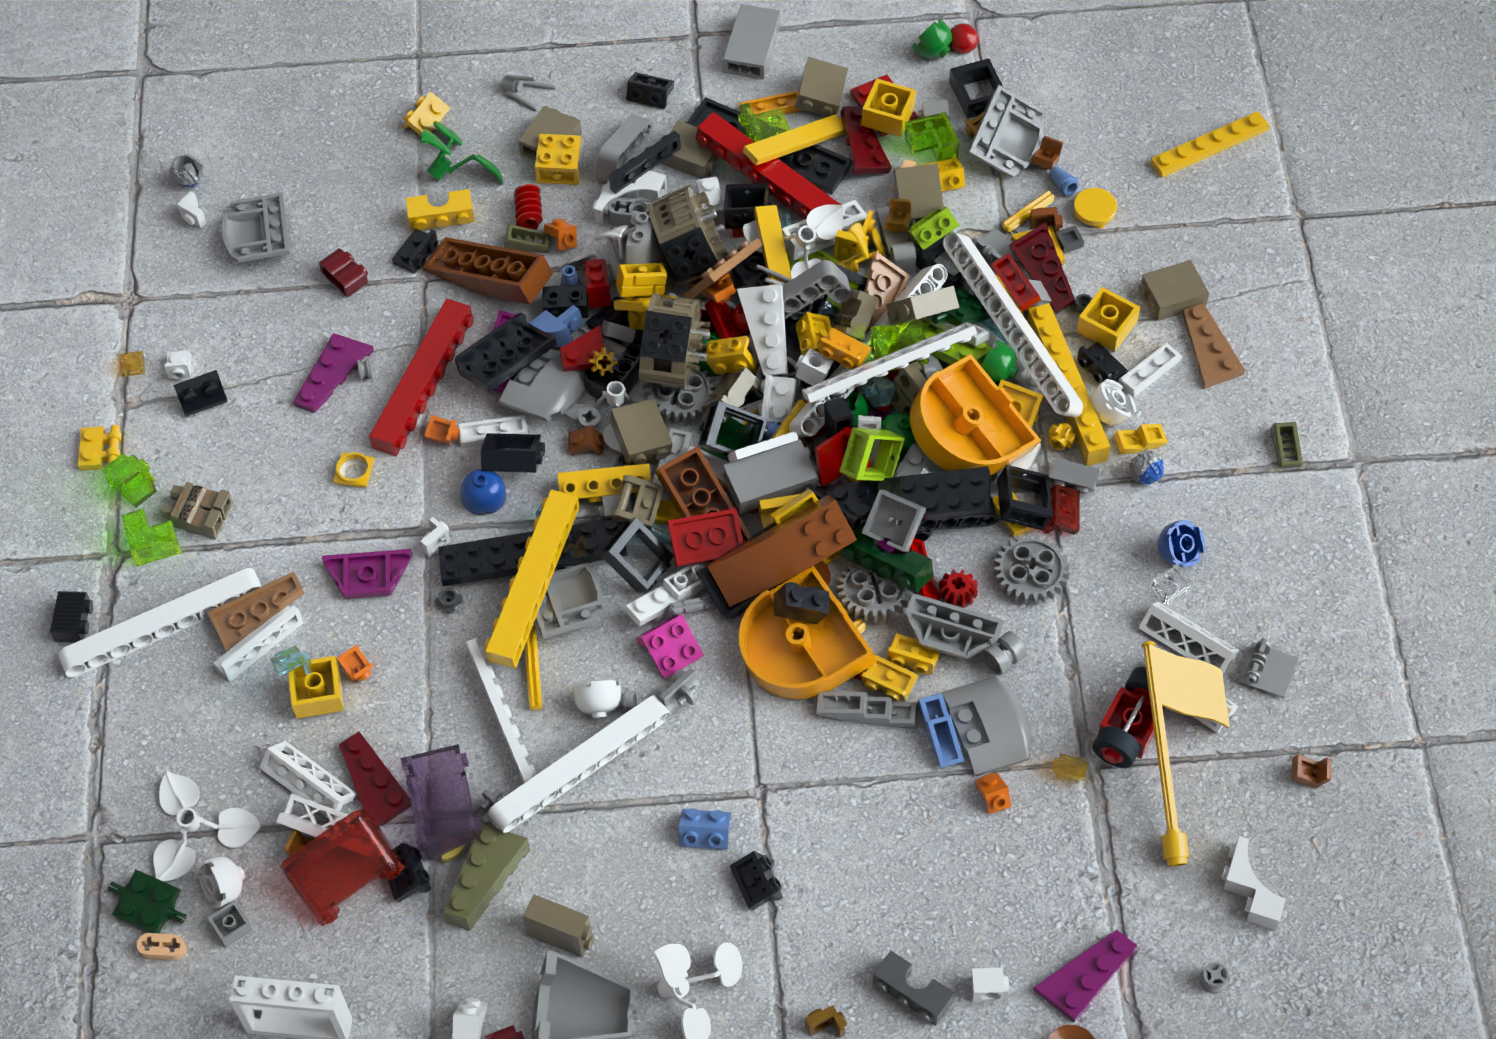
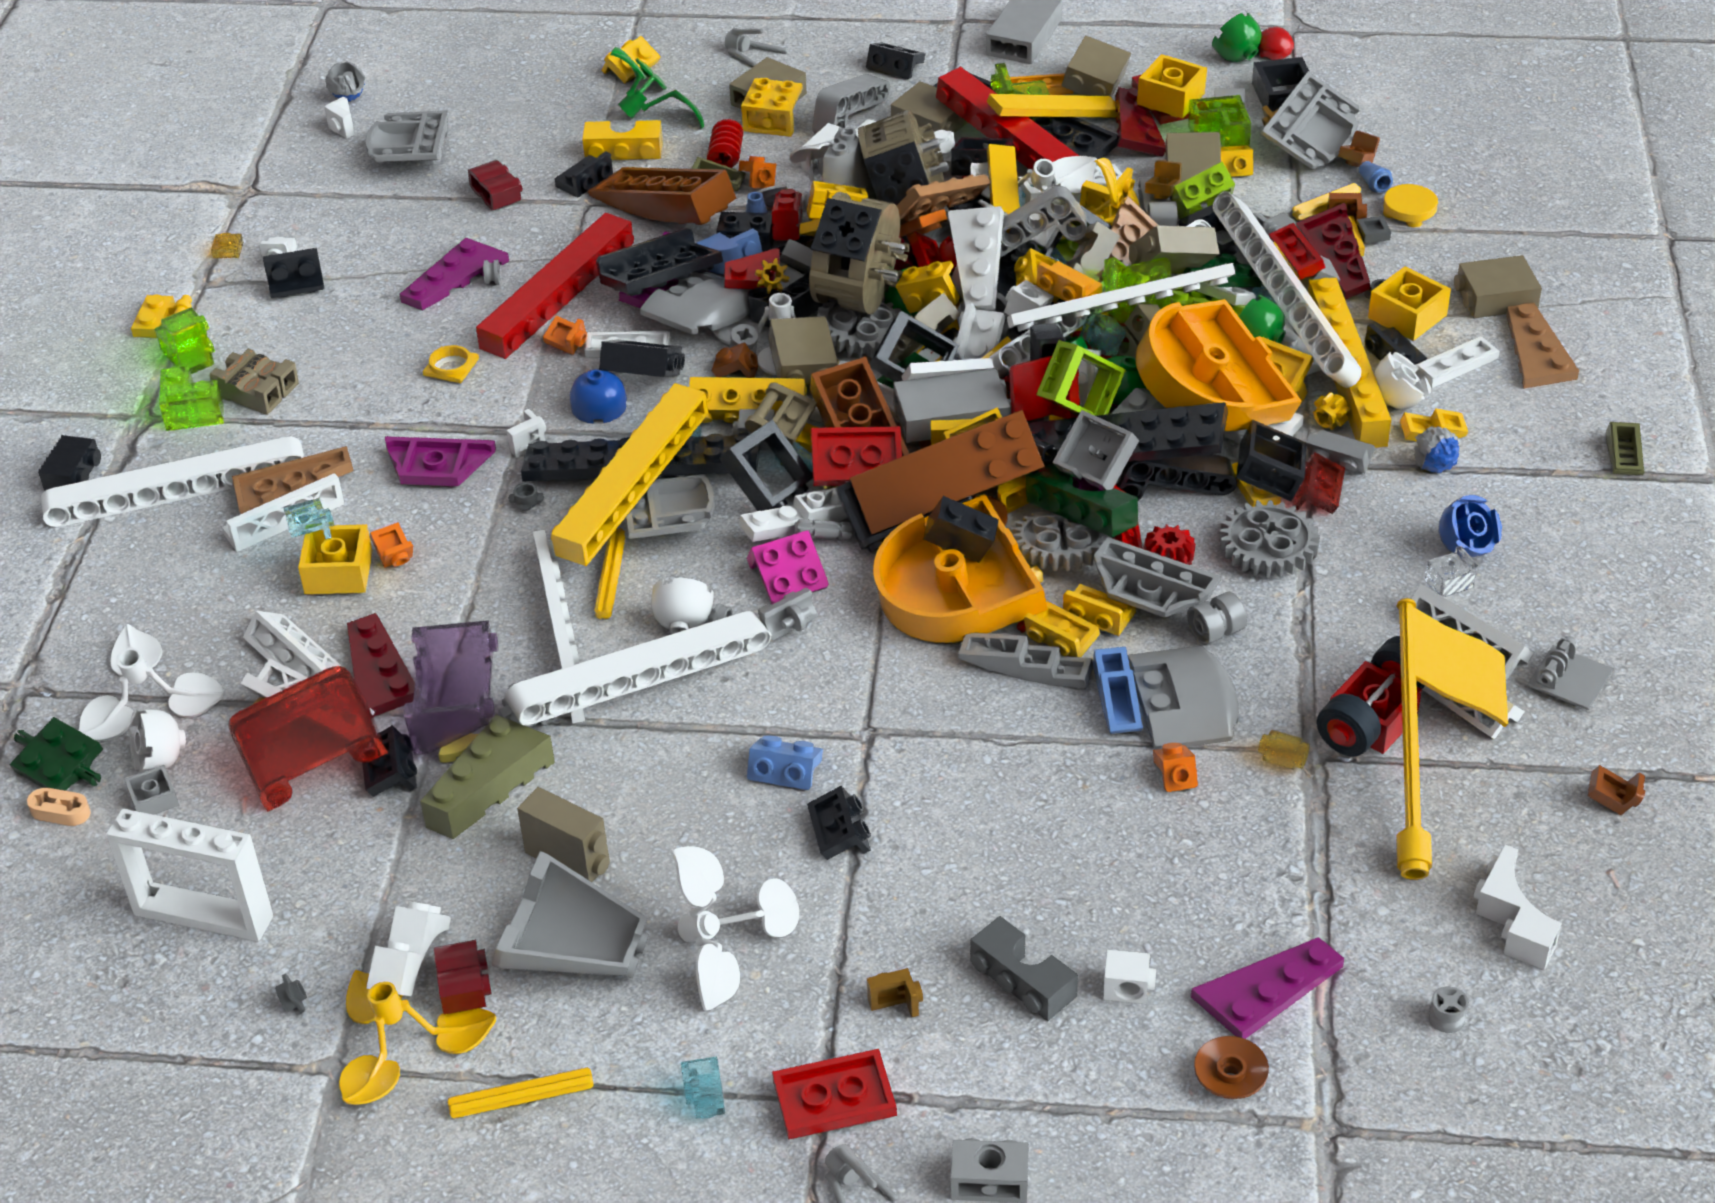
camera: 10 degrees right, 15 degrees down
(644, 162) = (871, 108): black plate -> none
(1209, 144) = (1563, 160): yellow plate -> none

